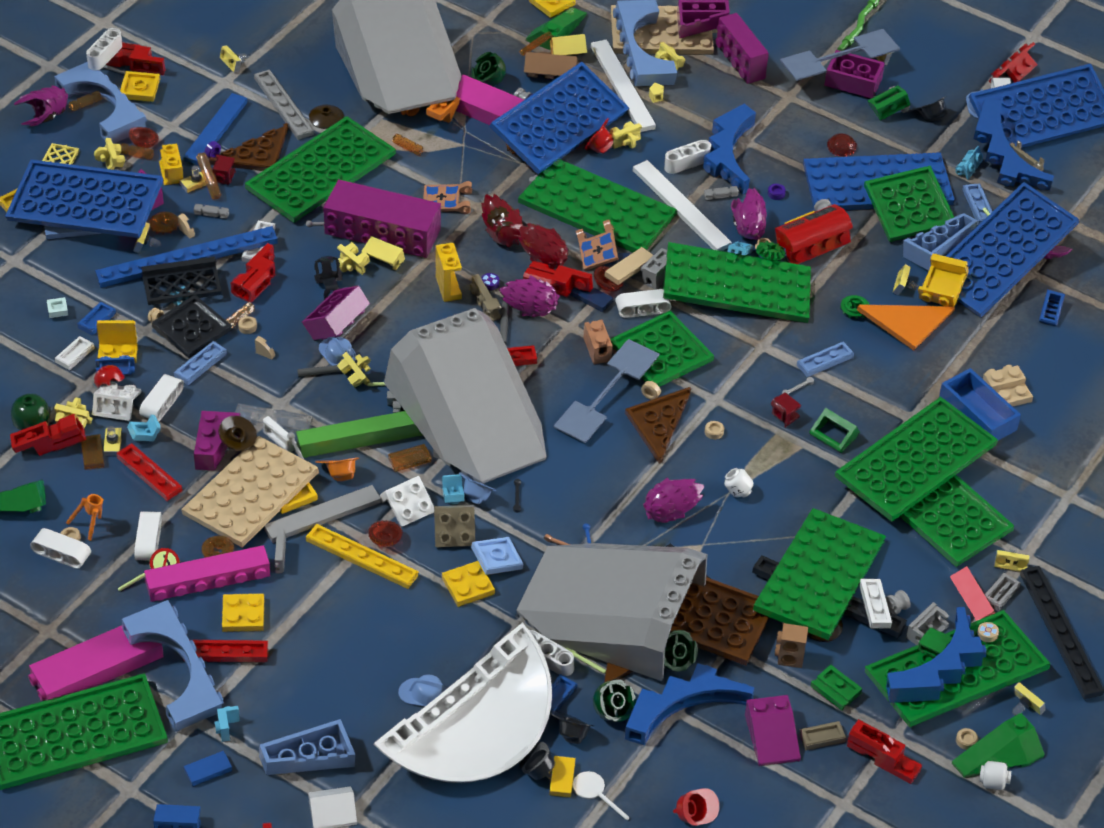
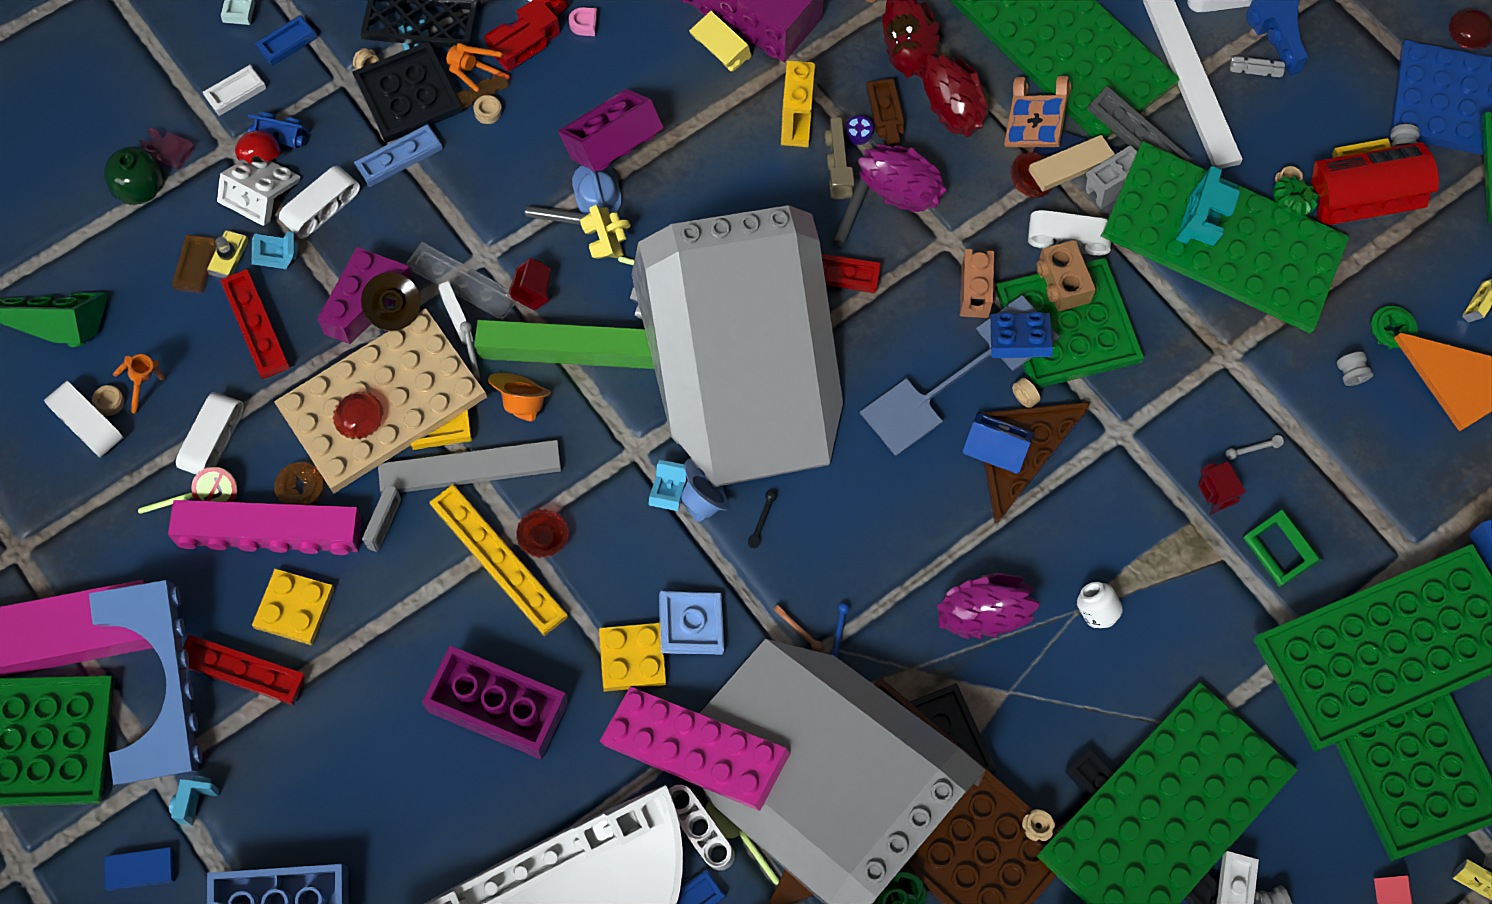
camera: 20 degrees right, 20 degrees up
(49, 393) = (170, 149): none -> clear pink plate
(49, 438) = (137, 228): red plate -> none
(73, 408) = (196, 204): light yellow hips -> none
(117, 338) = (292, 92): yellow bracket -> none
(220, 300) = (462, 59): none -> orange plant
(242, 498) = (358, 415): none -> clear red hat
(263, 349) = (491, 158): tan tile -> none
(288, 264) = (583, 21): none -> bright pink tile
(320, 407) = (530, 284): none -> dark red window
(328, 276) = (627, 60): black piece -> none
(349, 260) = (662, 43): light yellow hips -> none
(395, 622) = (495, 702): none -> magenta brick
(409, 457) = (629, 406): clear orange tile -> none
(409, 501) = (597, 485): white bracket -> none
(421, 690) = (495, 830): medium blue piece -> none
(454, 525) = (643, 556): dark tan plate -> none
(502, 265) = (886, 110): none -> reddish brown hinge
(528, 606) = (695, 748): none -> dark pink plate
(561, 279) = (954, 159): red plate -> none
(595, 298) = (991, 188): dark blue tile -> none
(641, 354) = (1021, 335): none -> blue plate
(645, 418) = (997, 443): none -> blue panel
(650, 322) = (1072, 274): none -> medium nougat brick
(653, 236) = (1130, 124): none -> dark grey plate
(714, 430) = (1098, 489): tan tile -> none
(718, 254) = (1208, 195): none -> teal panel
(740, 247) = (1254, 187): medium azure tile -> none
(748, 593) = (1047, 825): none -> tan plate
(750, 215) = (1285, 122): magenta head -> none
(776, 191) = (1343, 86): dark purple tile -> none
(825, 359) = (1314, 409): medium blue tile -> none
(840, 331) = (1354, 368): none -> light grey wheel

